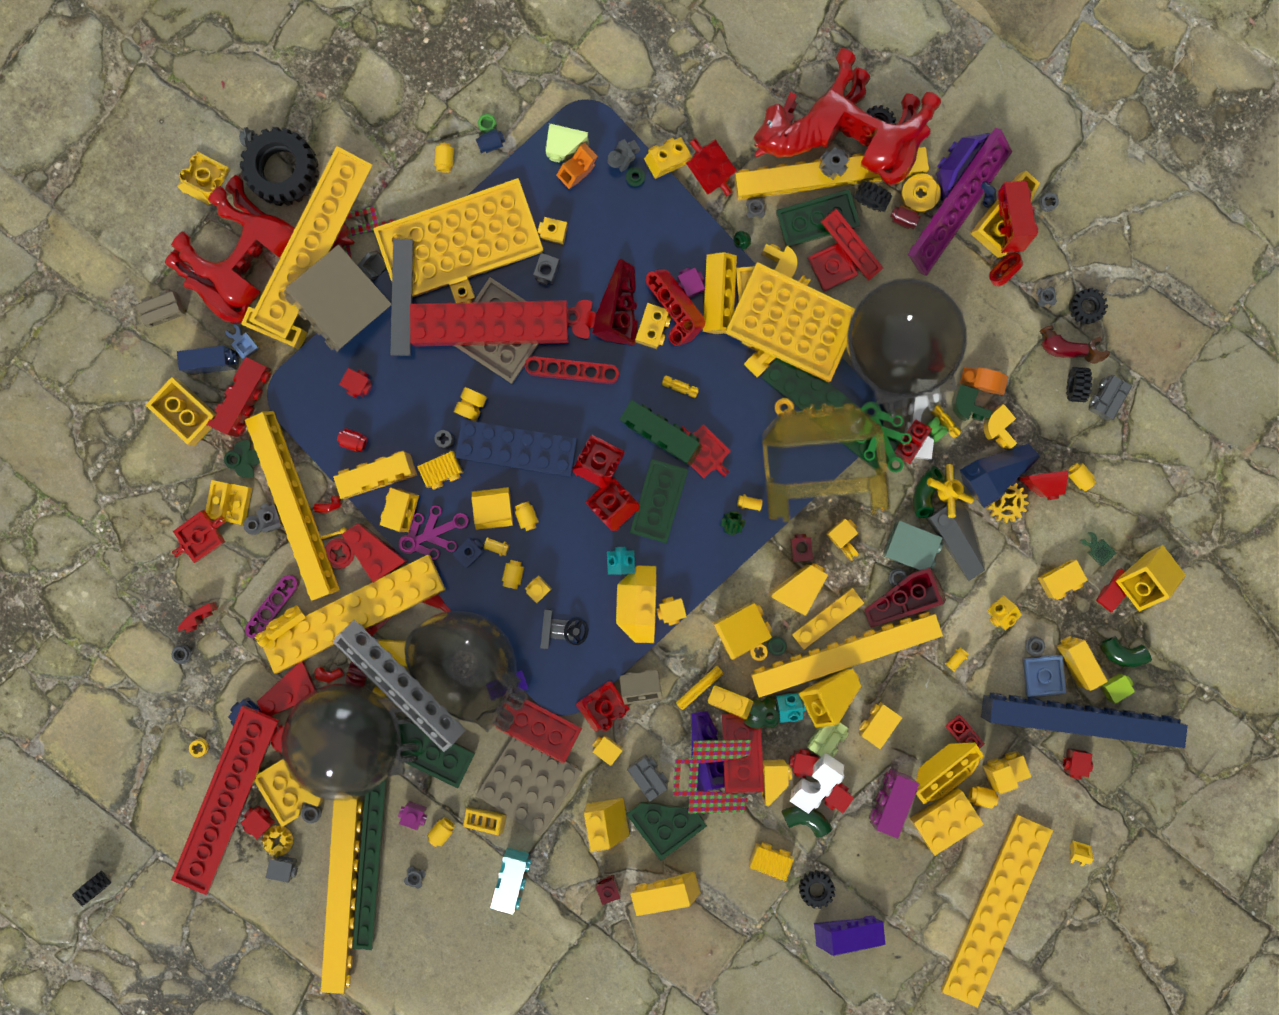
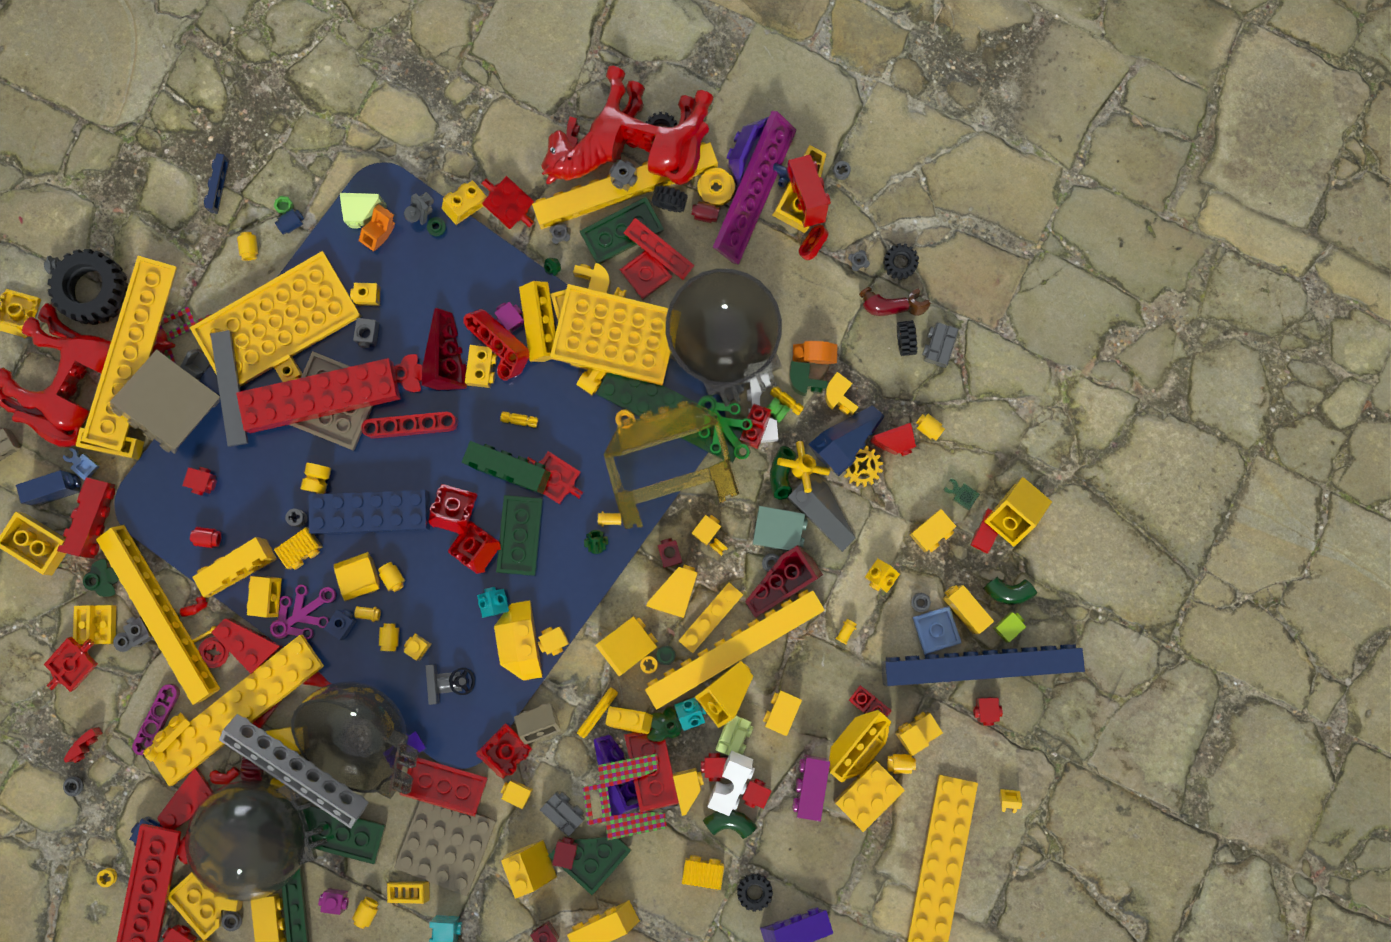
camera: 10 degrees left, 5 degrees down
(424, 87) = (216, 183): none -> dark blue plate
(644, 816) = (565, 853): none -> dark red brick

